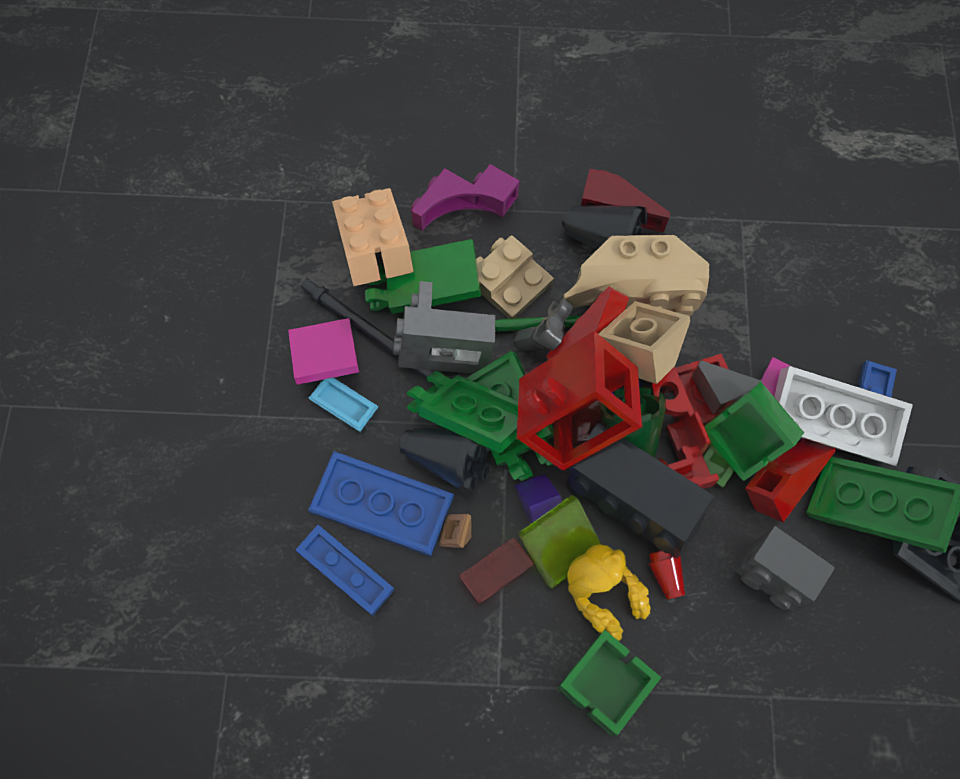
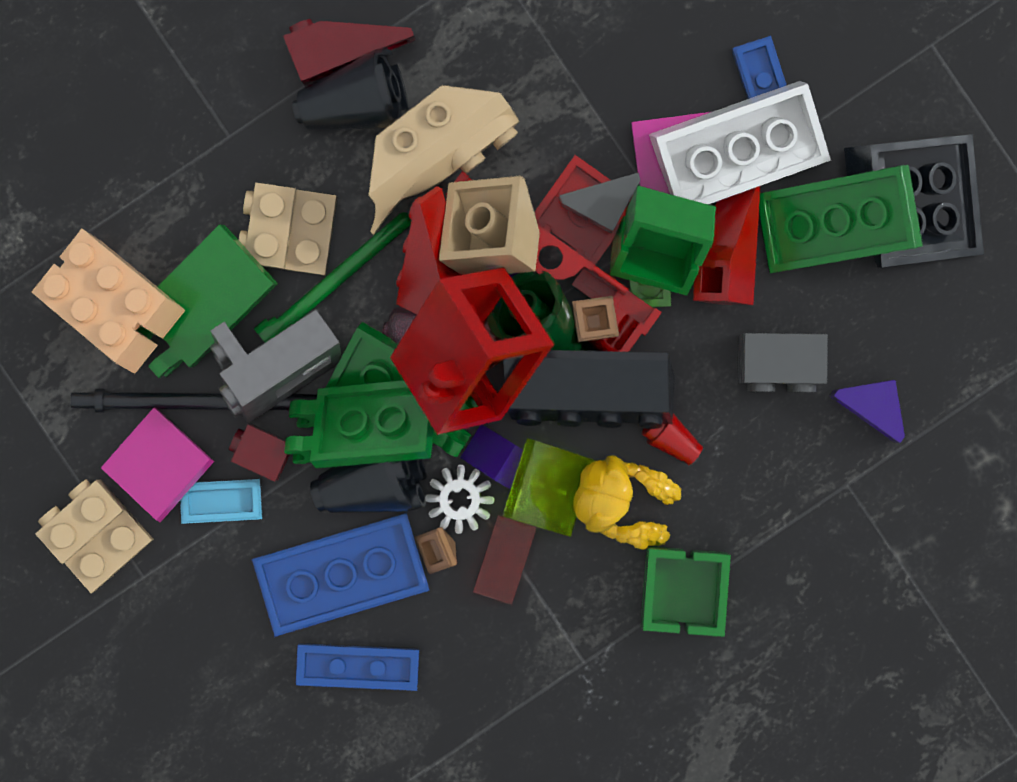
camera: 40 degrees left, 20 degrees up
(250, 366) = (93, 534): none -> tan plate
(391, 389) = (259, 452): none -> dark red brick
(490, 192) = (141, 177): magenta arch -> none
(490, 518) = (463, 512): none -> white gear
(548, 333) = (381, 277): dark grey bar -> none
(672, 449) = (595, 319): none -> medium nougat slope
(828, 652) = (875, 405): none -> dark purple slope

